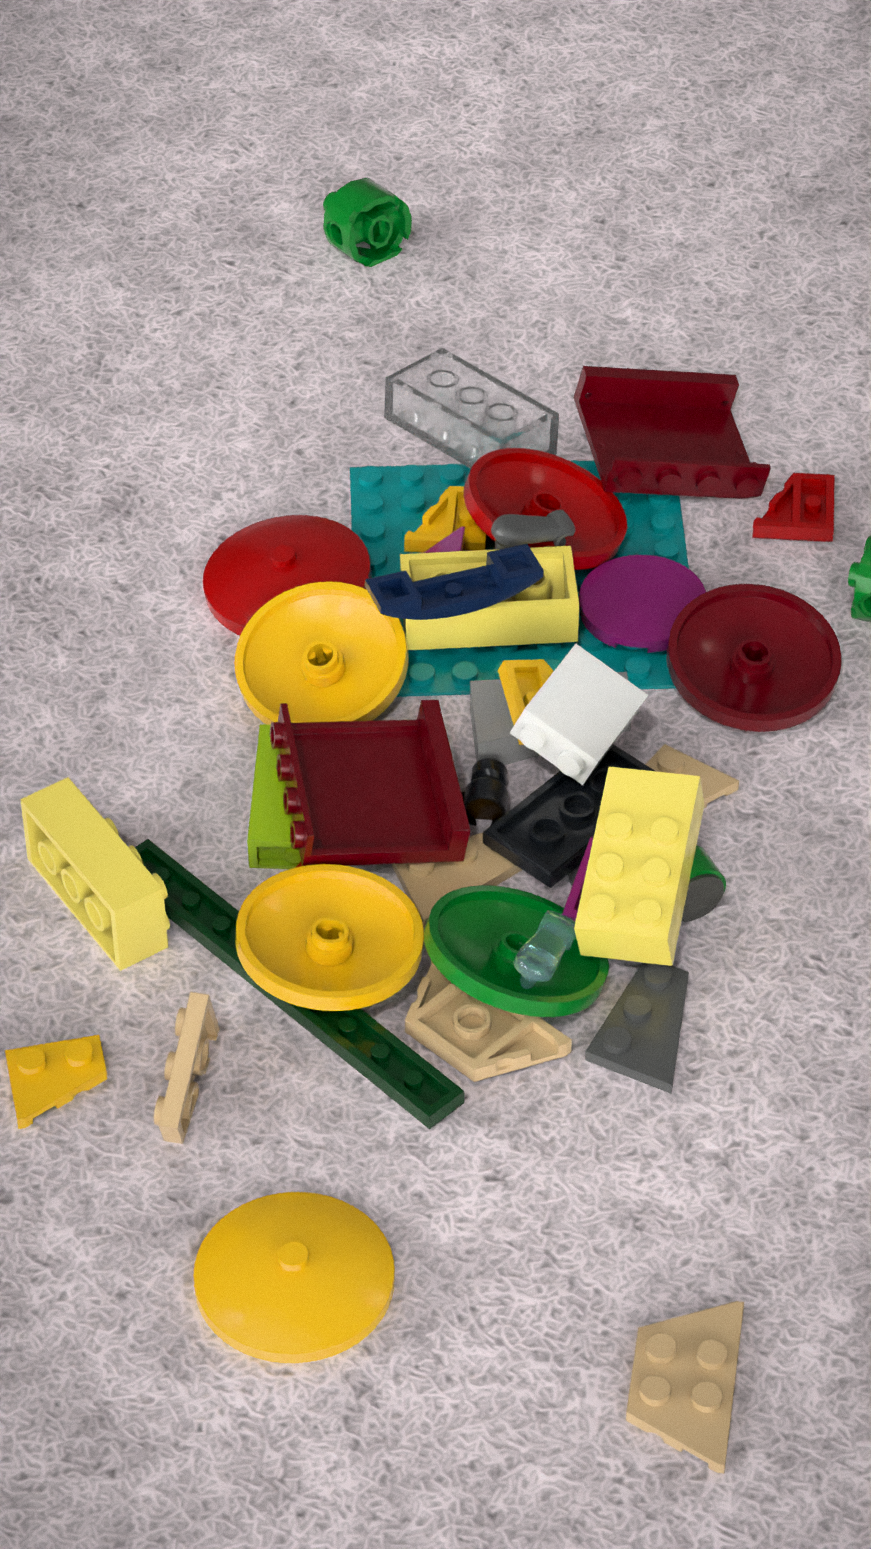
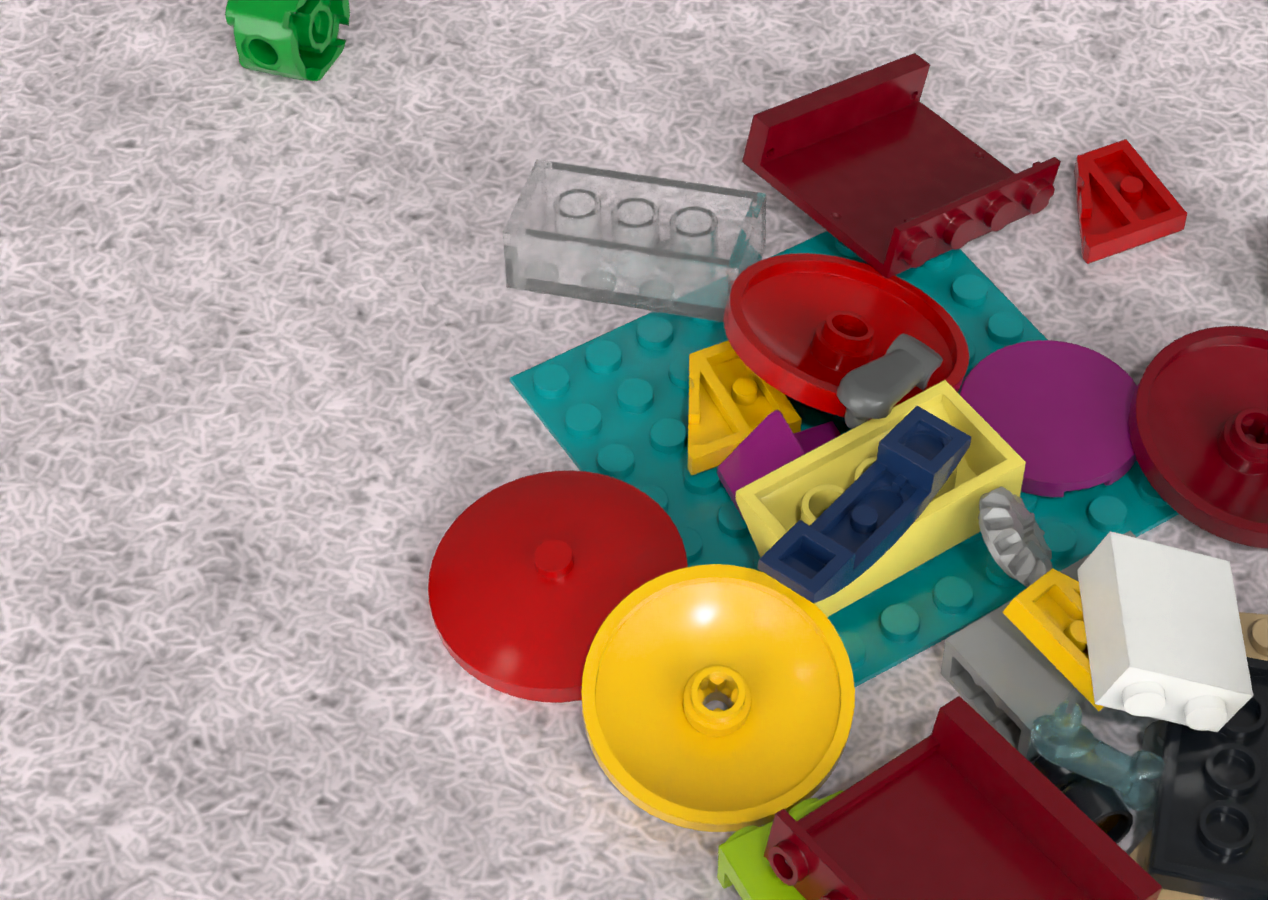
camera: 30 degrees left, 5 degrees up
(493, 759) = (1073, 747): none -> clear light blue piece
(541, 627) = (1013, 536): none -> light grey gear

